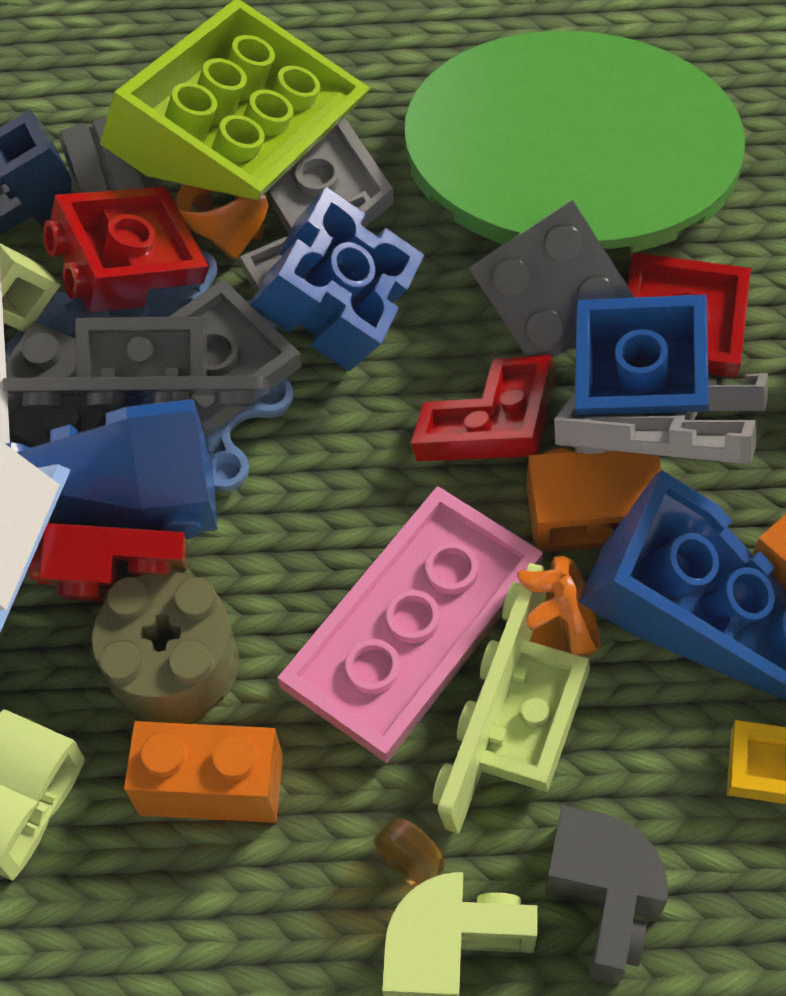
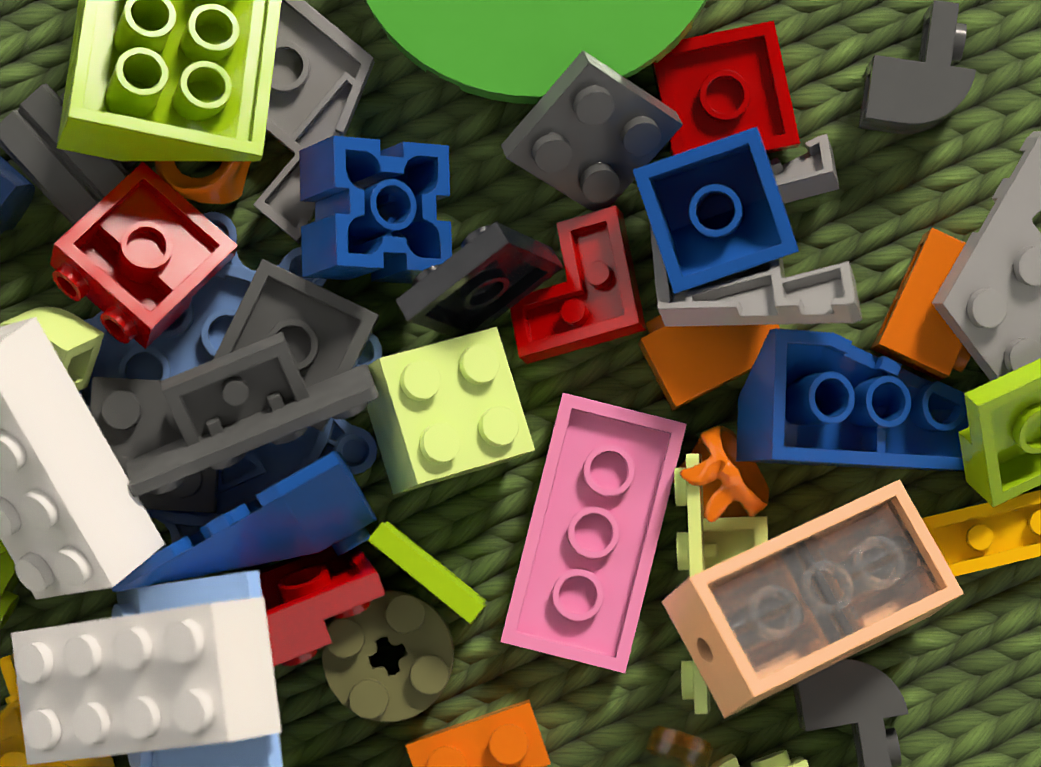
camera: 25 degrees left, 25 degrees up
(239, 577) = (428, 571): none -> lime tile
(322, 454) = (446, 410): none -> yellowish green brick
(400, 354) = (478, 281): none -> black plate
(603, 730) = (811, 597): none -> brick

